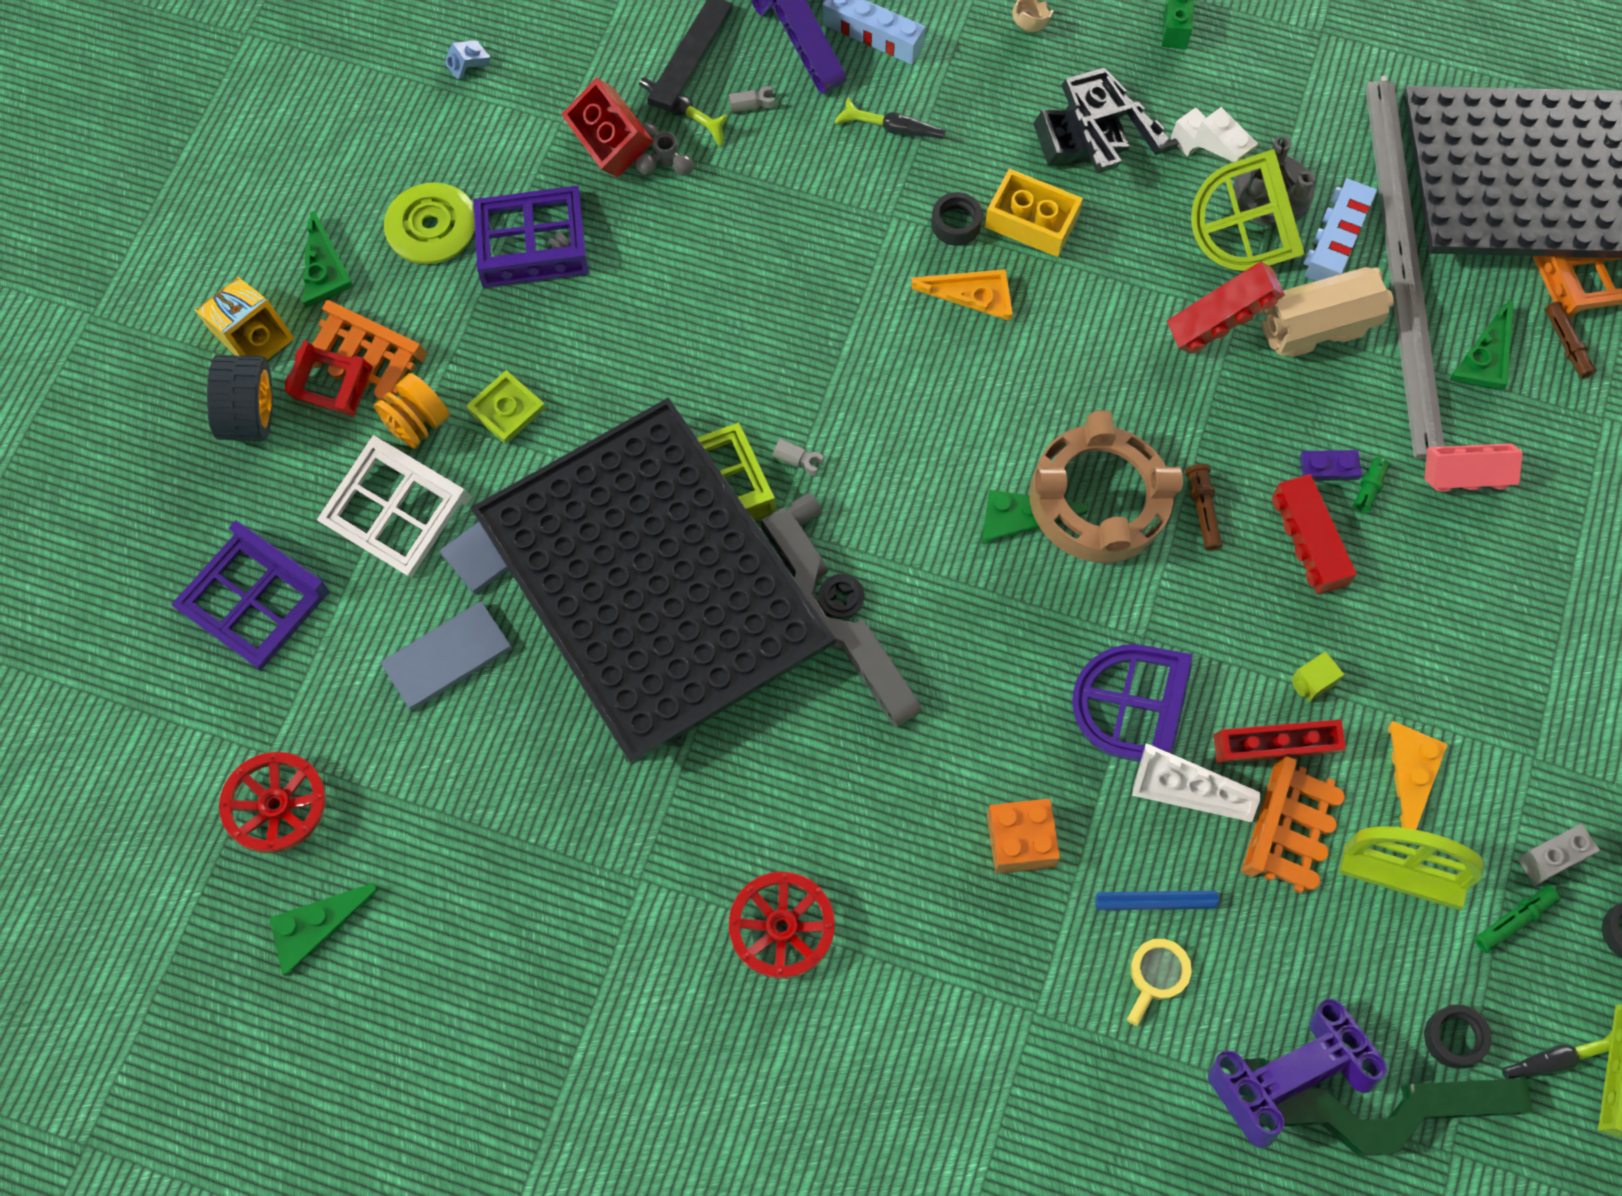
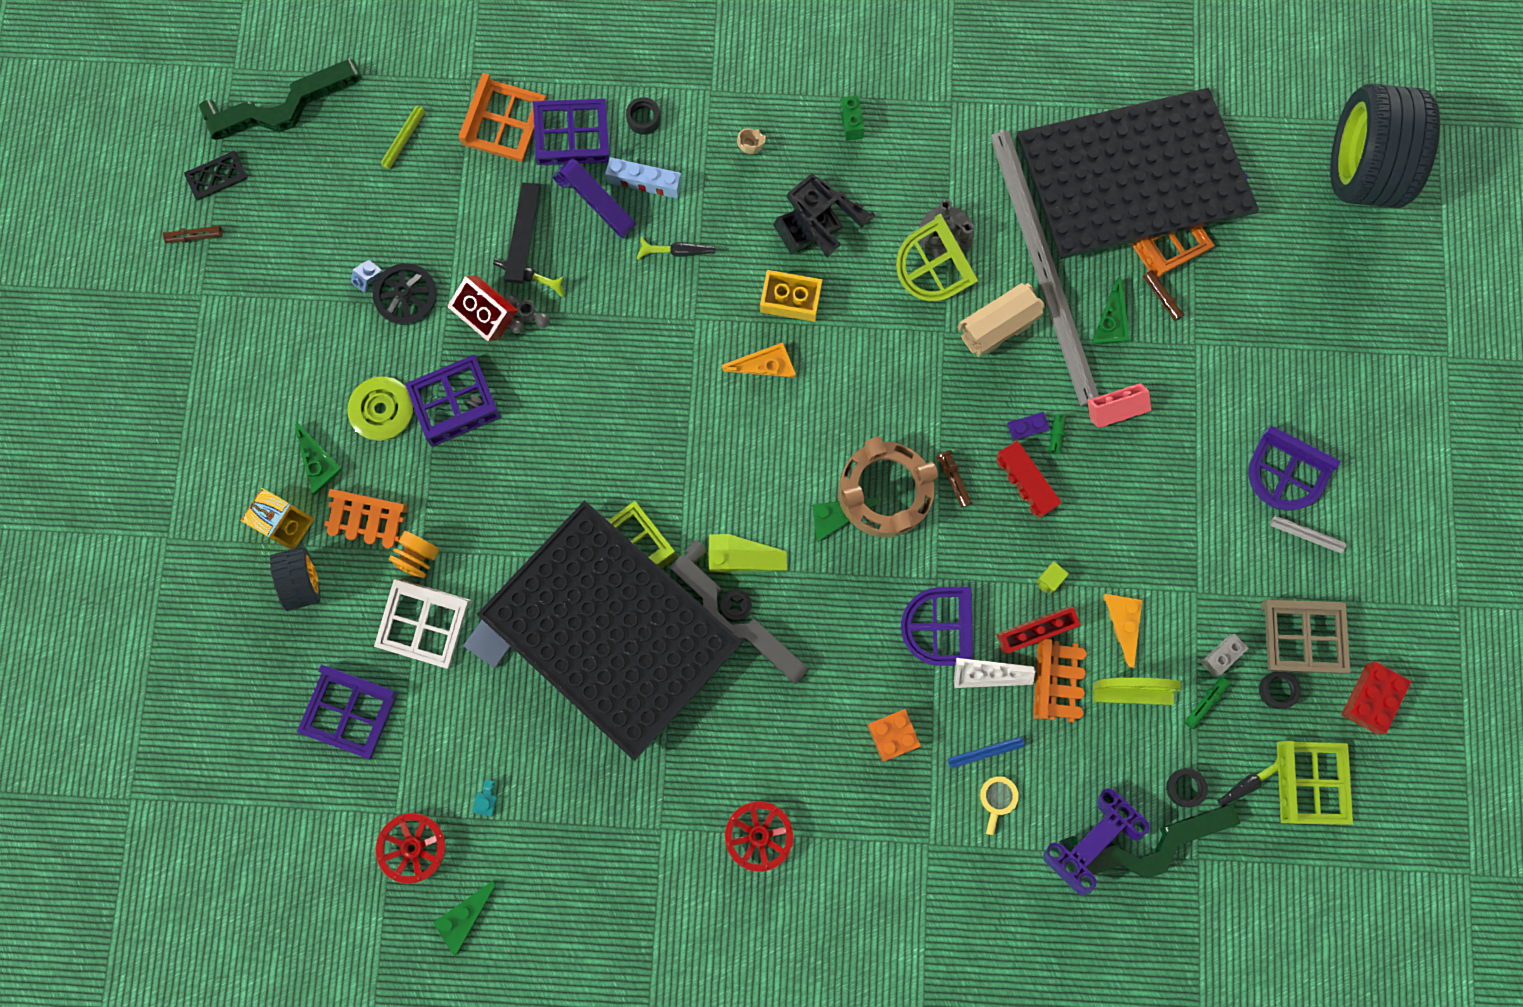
camera: 15 degrees left, 10 degrees up
(352, 387) = (367, 542): red window -> none
(401, 771) = (485, 801): none -> teal plate
(446, 655) = (490, 716): sand blue tile -> none
(505, 407) = (475, 531): lime plate -> none
(510, 89) = (406, 296): none -> black wheel
(751, 100) = (574, 256): light grey bar -> none
(797, 456) = (679, 514): light grey bar -> none
(862, 531) = (737, 554): none -> lime wedge
(962, 202) = (736, 298): black tyre -> none
(1216, 133) = (898, 208): white arch -> none
(1226, 308) = (936, 338): red brick -> none
(1341, 230) = (997, 256): light blue brick -> none

